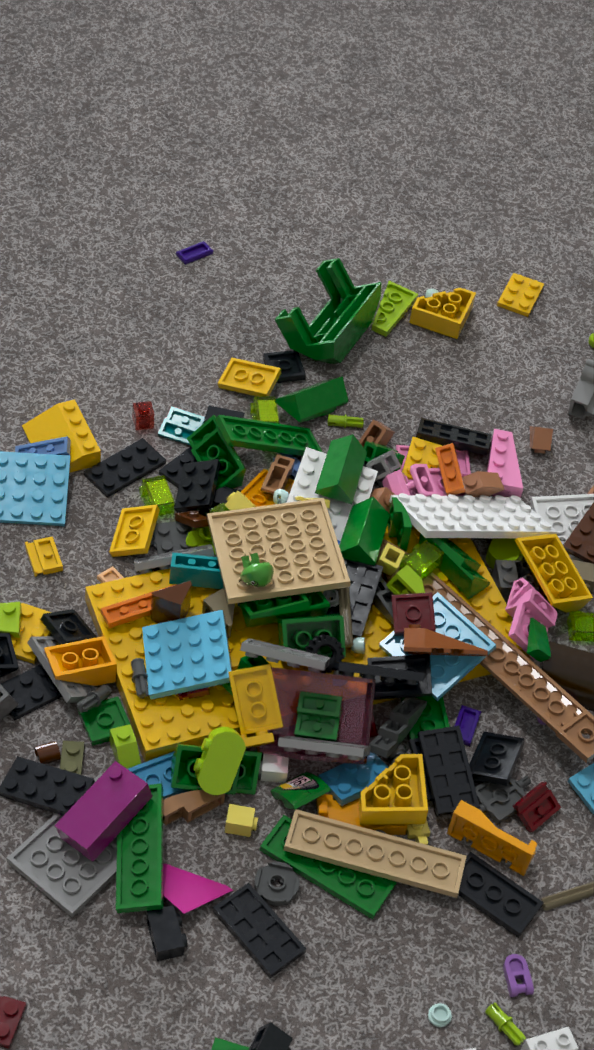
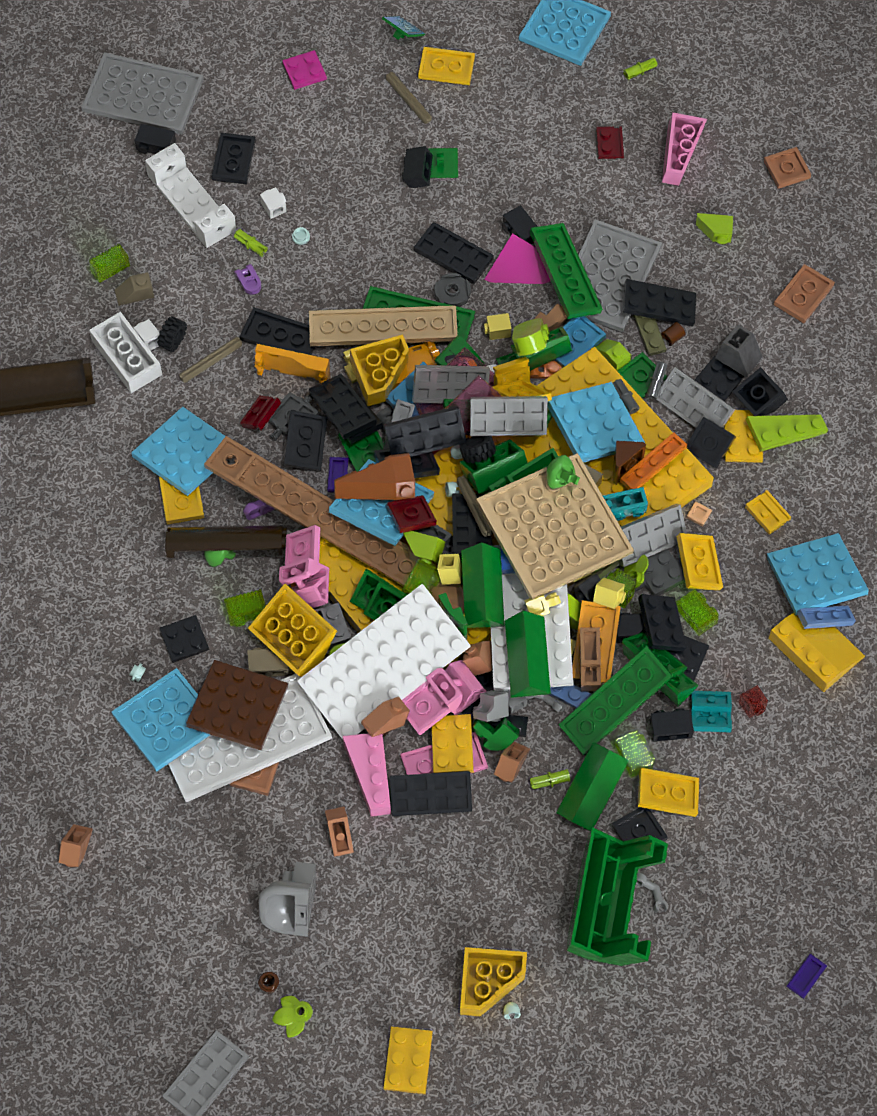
camera: 170 degrees right, 15 degrees up
(83, 662) = (684, 404): light orange slope -> none
(103, 811) = (603, 280): magenta brick -> none
(124, 467) = (743, 640): black plate -> none
(192, 519) = (650, 579): reddish brown plate -> none
(284, 496) = (576, 623): light aqua hinge -> none
(392, 308) = (550, 976): lime wing -> none
(450, 469) = (421, 713): orange plate -> none
(538, 642) = (291, 538): green slope -> none

